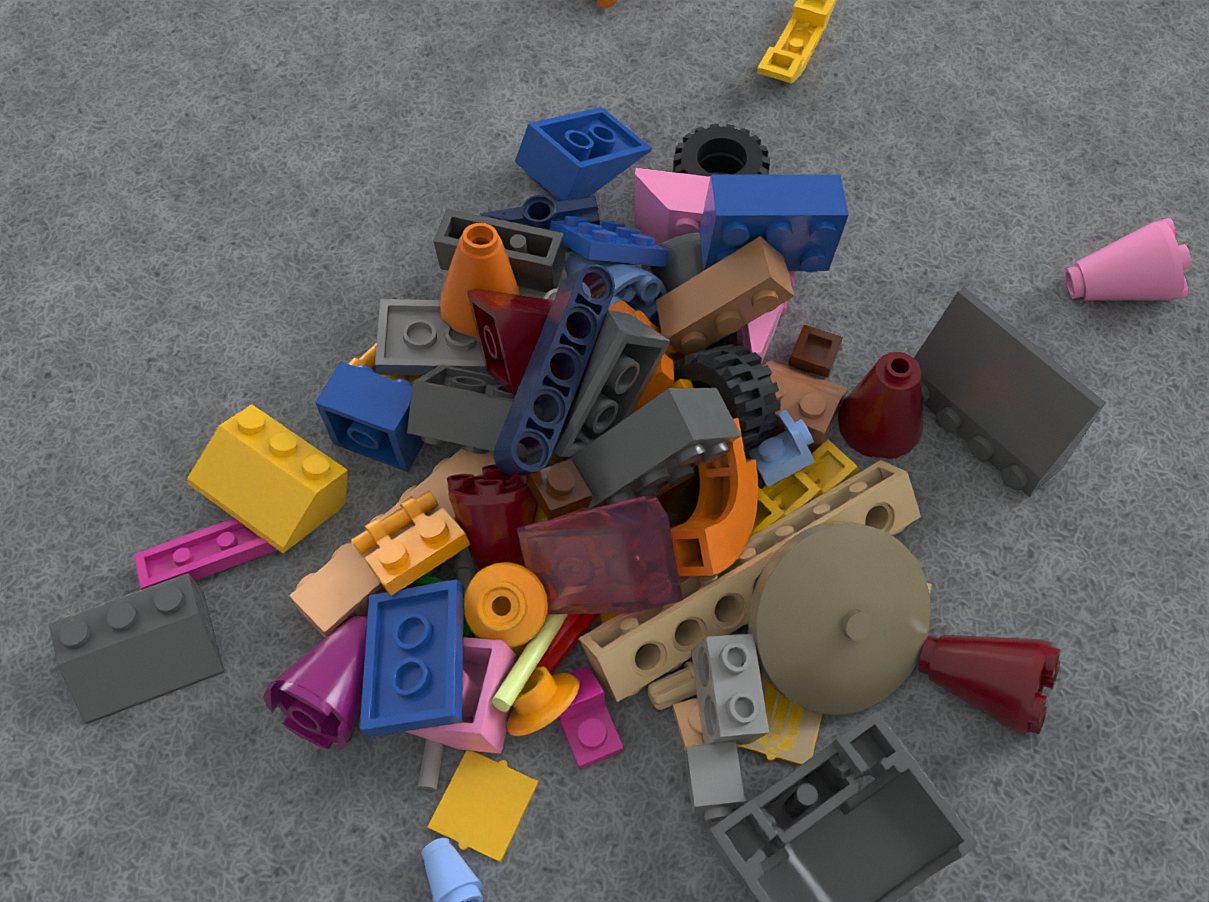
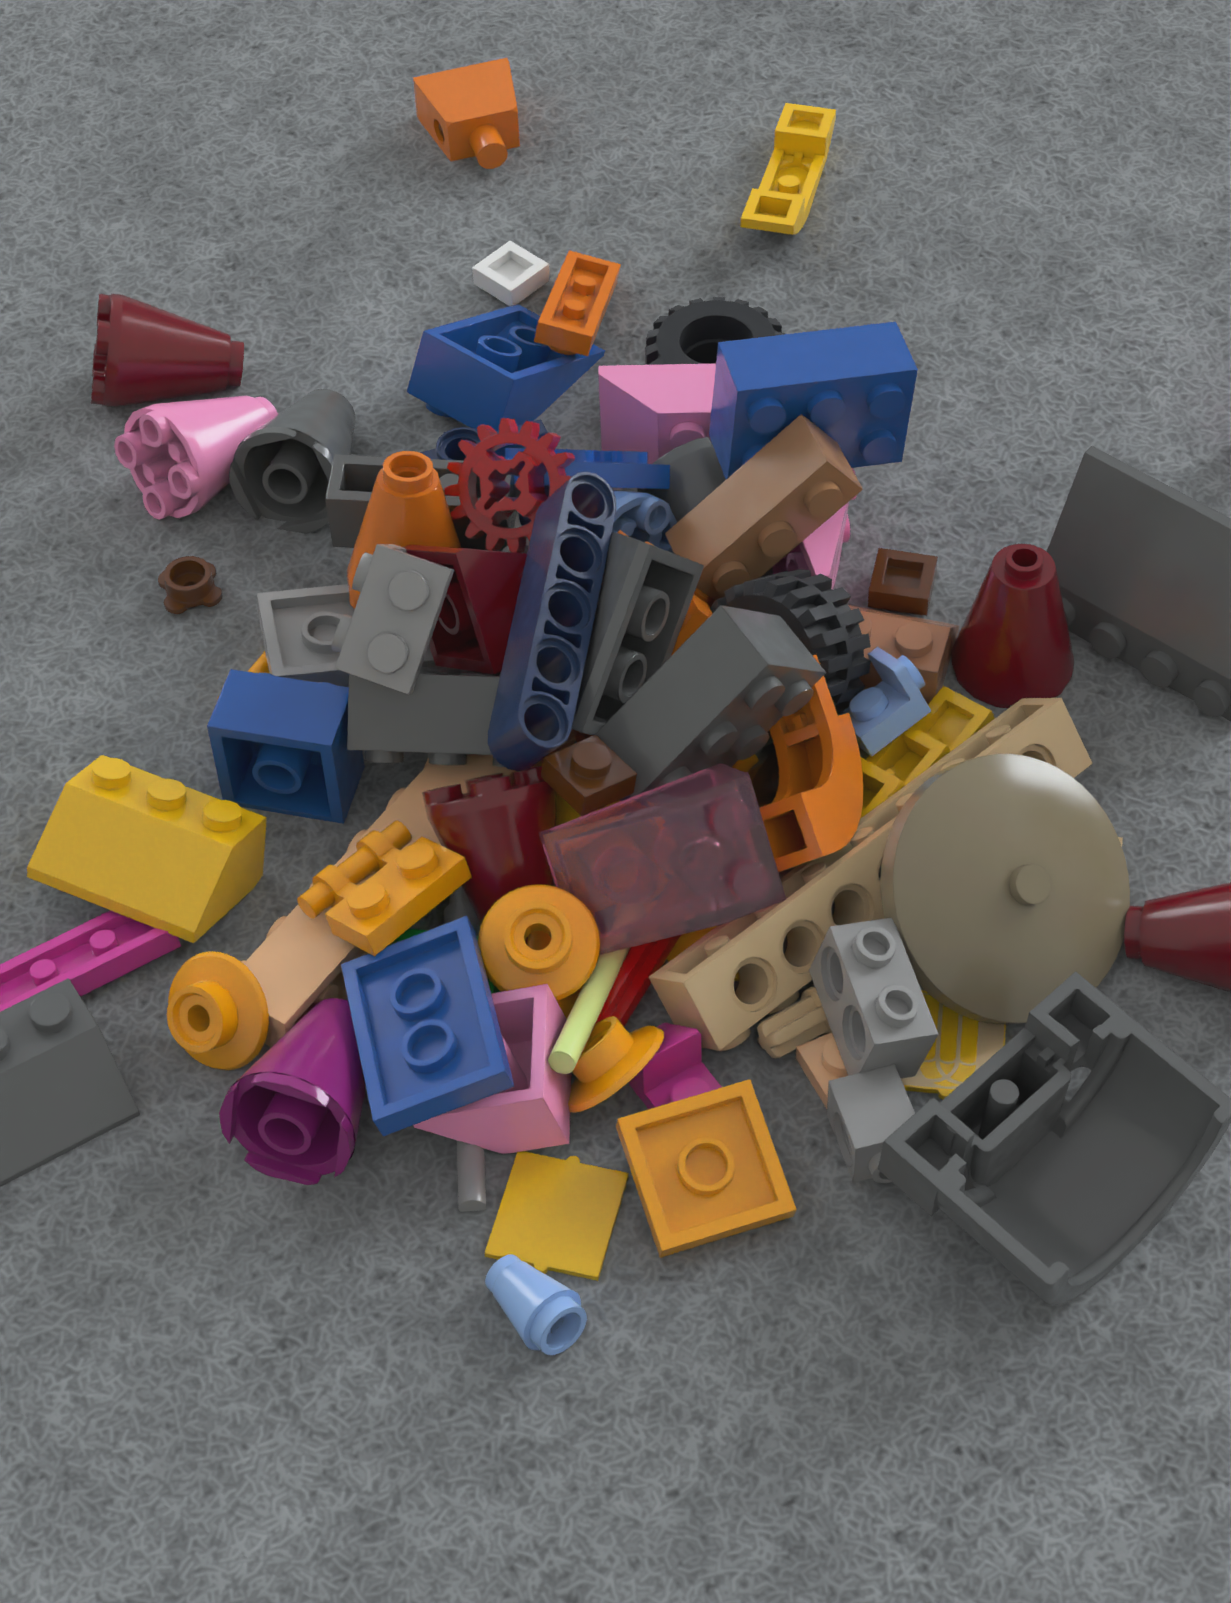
camera: 10 degrees left, 10 degrees down
(283, 611) = (218, 1011): none -> light orange piece
(346, 271) = (177, 581): none -> reddish brown plate
(359, 112) = (157, 355): none -> dark red cone
(369, 183) = (186, 449): none -> bright pink cone
(420, 201) = (289, 461): none -> dark grey cone
(445, 349) = (392, 617): none -> light grey bracket
(537, 250) = (492, 470): none -> red gear
(589, 795) = (705, 1168): none -> light orange plate
(601, 84) = (511, 273): none -> white plate
(638, 114) = (577, 304): none -> orange plate

